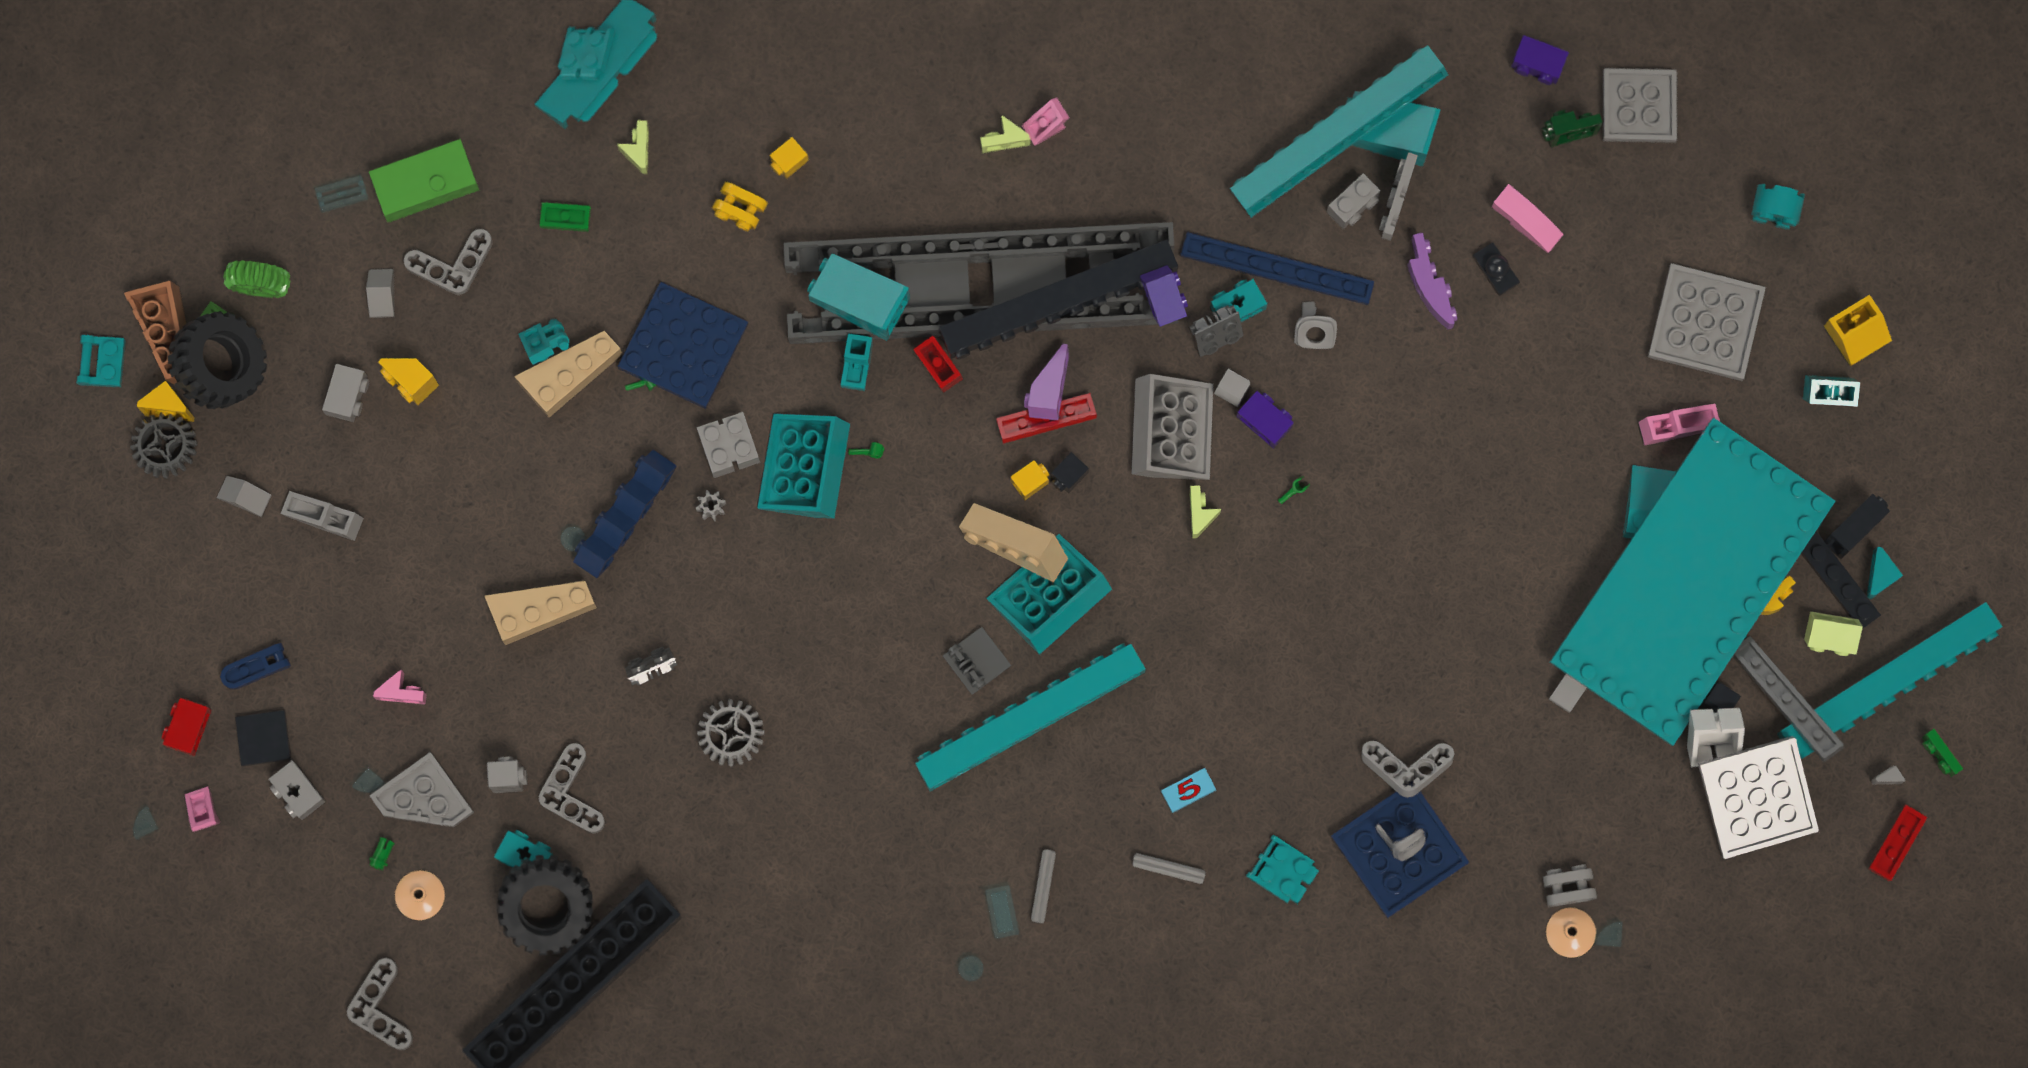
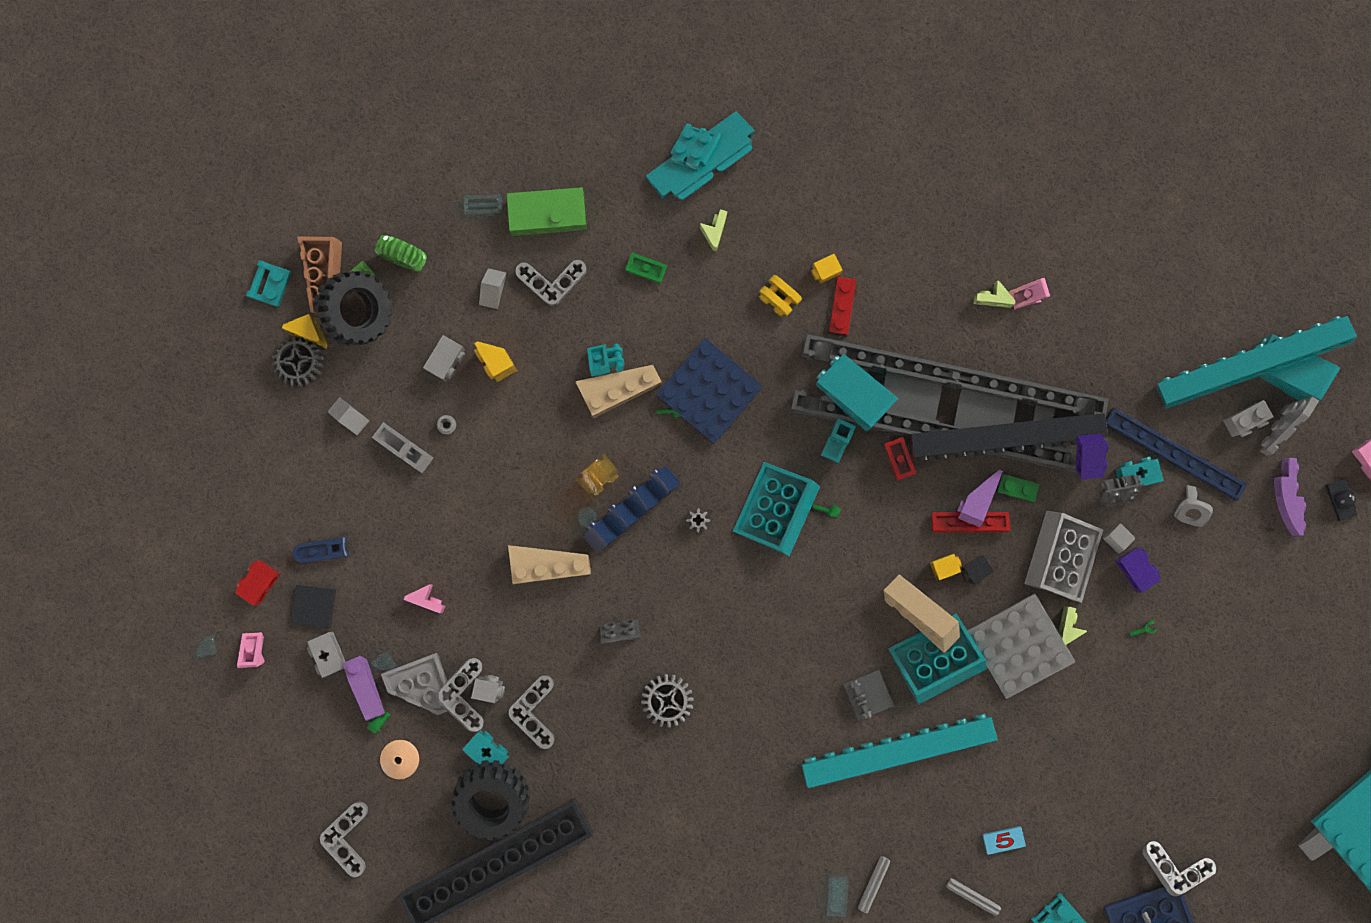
camera: 10 degrees right, 5 degrees up
(353, 816) = (363, 687): none -> medium lavender slope
(365, 467) = (446, 418): none -> light grey plate
(469, 799) = (455, 698): none -> light grey beam
(571, 483) = (597, 475): none -> clear yellow brick
(728, 444) = (723, 477): light grey piece -> none
(820, 198) = (842, 306): none -> red plate
(1094, 361) = (1017, 488): none -> green plate
(1146, 549) = (1021, 646): none -> light grey plate

